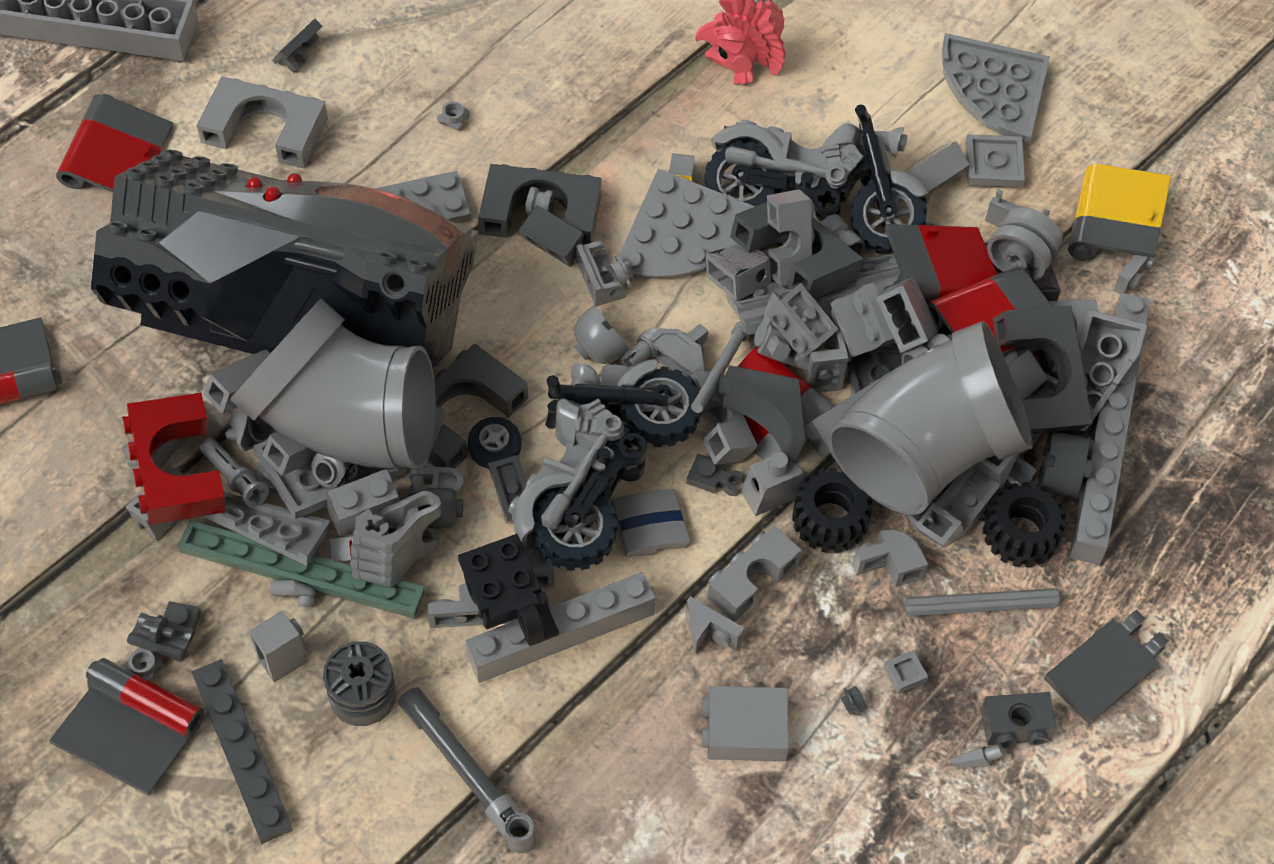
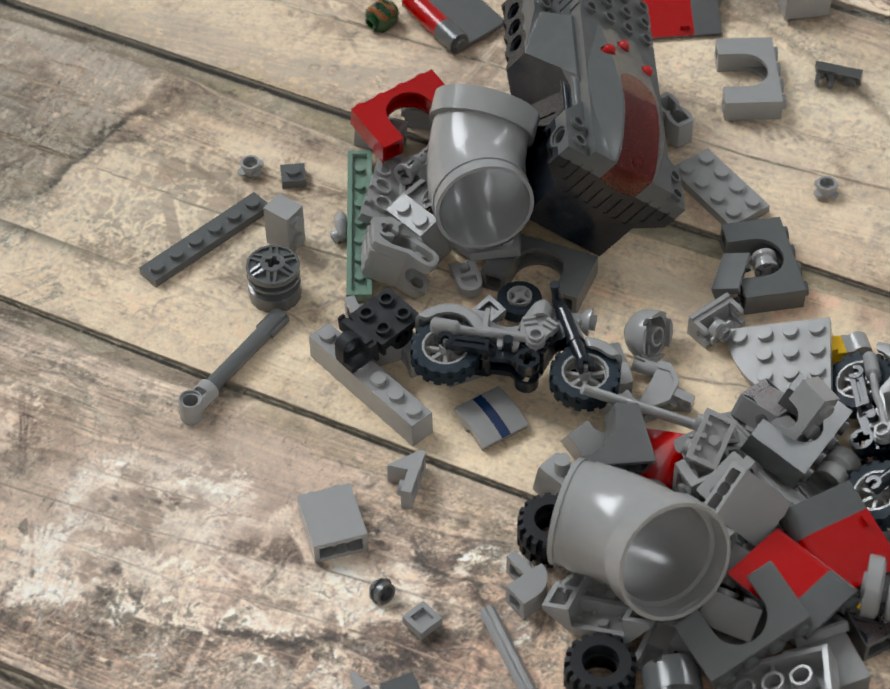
camera: 75 degrees right, 10 degrees down
(128, 726) = (200, 174): dark grey door -> none
(161, 636) = (271, 166): dark grey hips -> none
(450, 508) = (443, 283): dark grey head -> none
(710, 476) = (552, 442): dark grey plate -> none
(769, 554) = (454, 483): light grey arch -> none

